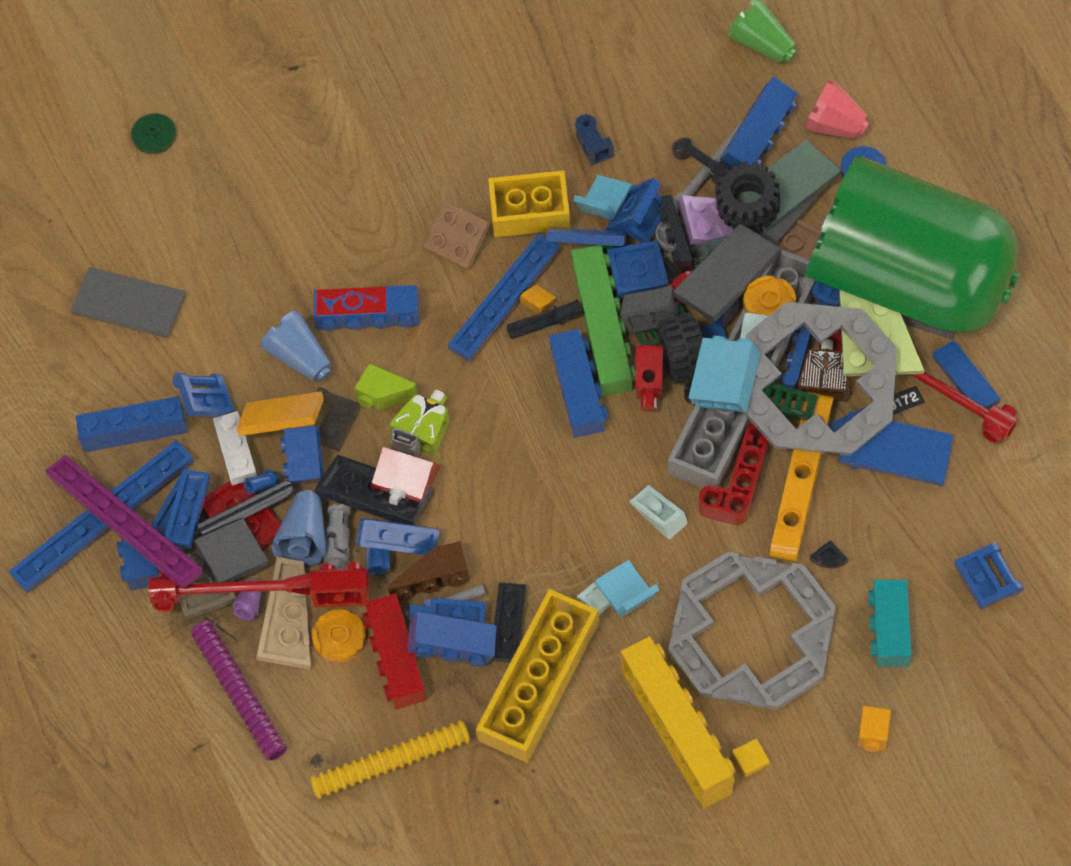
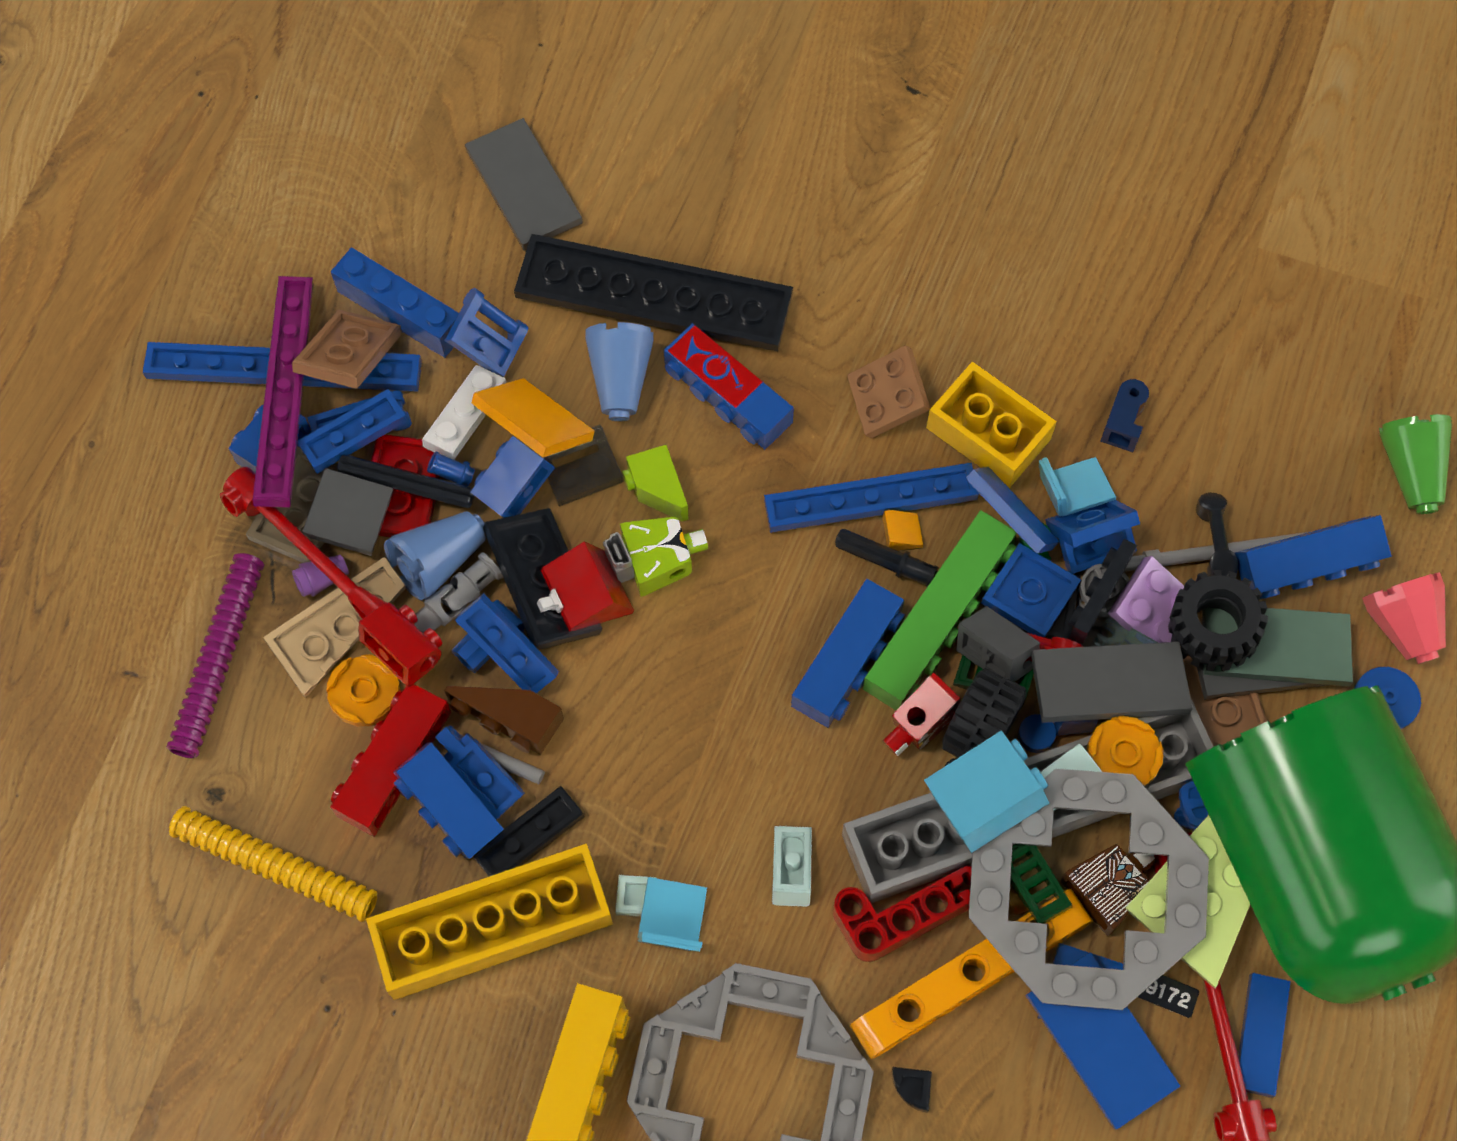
camera: 40 degrees right, 5 degrees up
(133, 471) = (347, 349): none -> medium nougat tile
(153, 133) = (716, 42): dark green piece -> none
(269, 295) = (654, 292): none -> black plate
(796, 360) = (1090, 844): blue plate -> none

